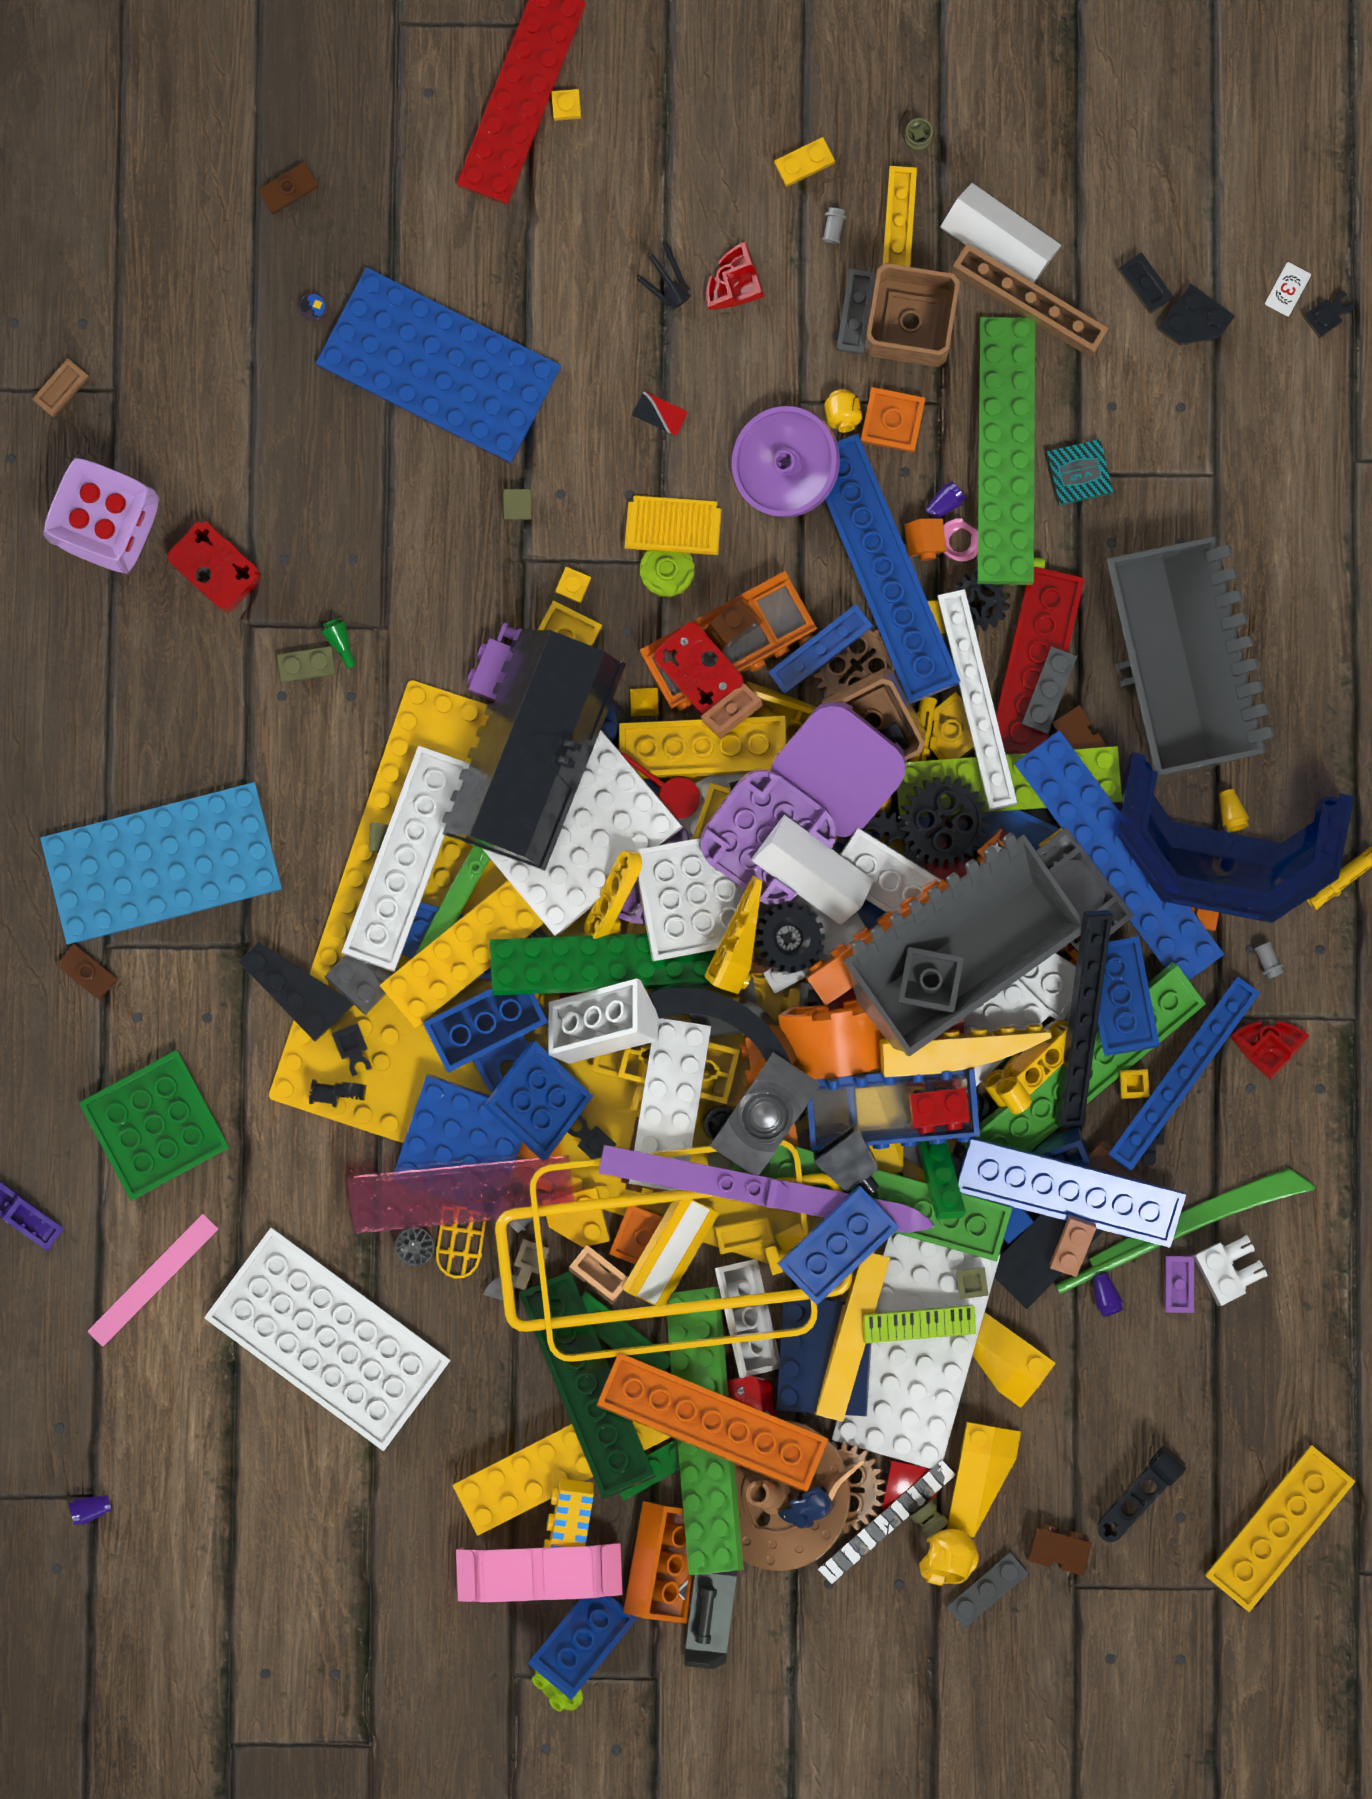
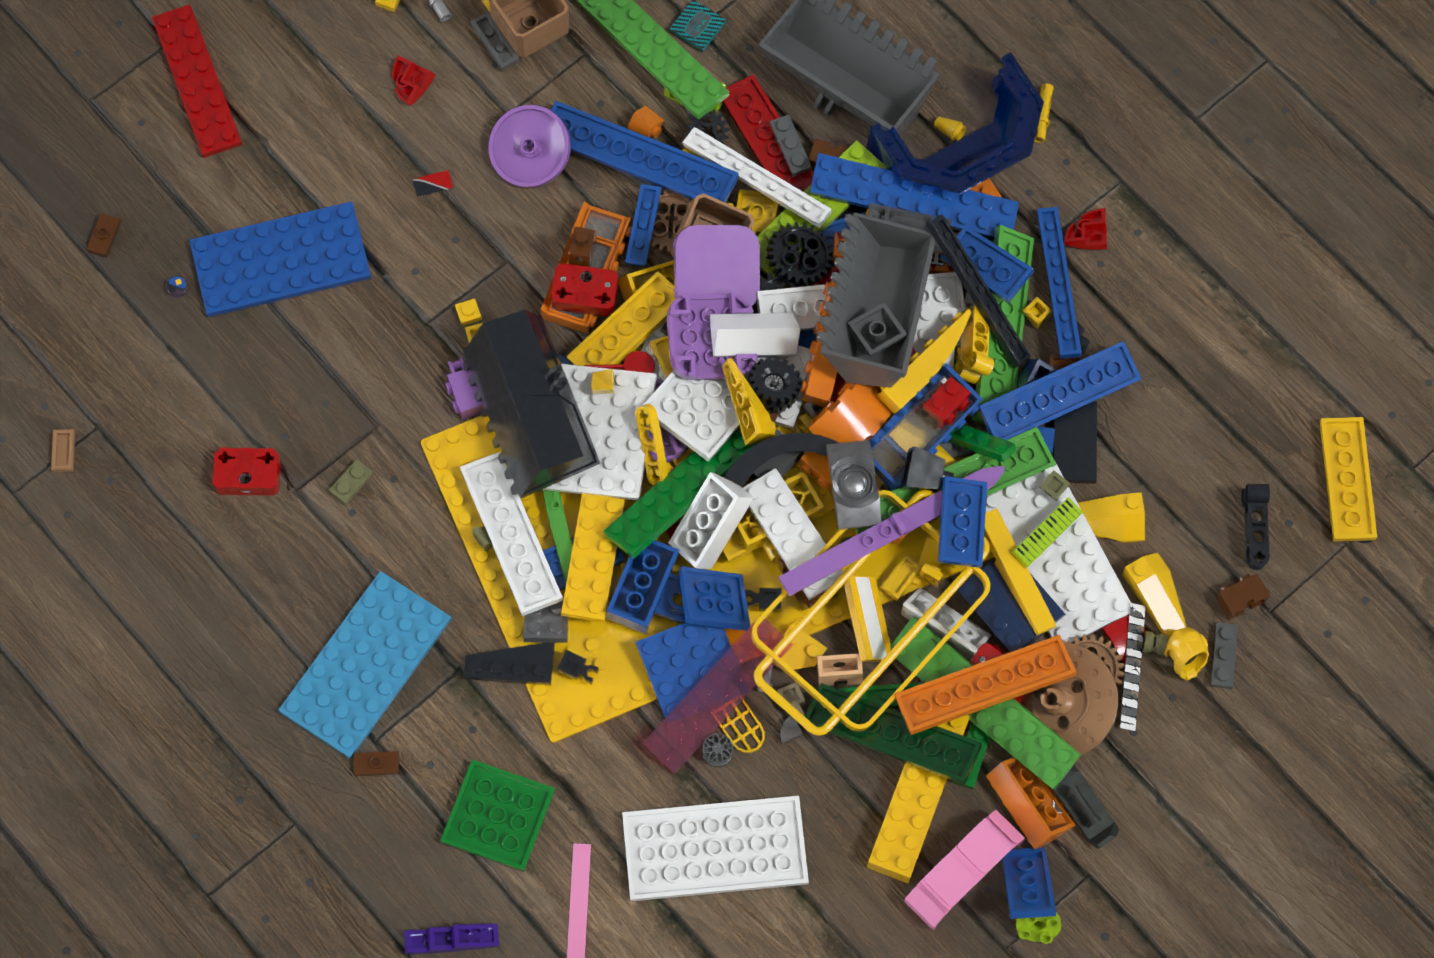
camera: 50 degrees left, 15 degrees down
(101, 515) = (153, 491): lavender piece -> none
(330, 1093) = (588, 703): black connector -> none
(337, 636) = (354, 449): green cone -> none
(517, 504) = (395, 294): olive slope -> none
(566, 104) = (228, 66): yellow plate -> none
(571, 1514) = (952, 814): yellow brick -> none
(620, 790) = (603, 382): none -> yellow slope
(635, 1233) = (838, 629): orange plate -> none
(644, 702) = (567, 341): yellow slope -> none
(666, 572) = (514, 260): lime tile -> none
(673, 525) = (496, 233): yellow window -> none
(675, 292) = (382, 111): black plant -> none
(715, 1119) = (828, 517): black wheel -> none
(731, 711) = (625, 292): nougat plate -> none
(814, 1504) = (1087, 679): dark blue animal -> none
(843, 410) = (536, 94): yellow head -> none
(892, 420) = (568, 79): orange plate -> none
(945, 500) = (638, 96): dark purple cone -> none
(953, 526) = (674, 105): bright pink piece -> none
(1073, 1245) = (1089, 421): nougat plate -> none
(1106, 1295) = (1133, 437): dark purple cone -> none
(1179, 1284) = (1165, 396): medium lavender plate -> none
(1217, 1270) = (1182, 370): white brick -> none
(1255, 1193) = (1156, 318): bright green piece -> none
(1269, 960) = (1045, 187): light grey pin -> none

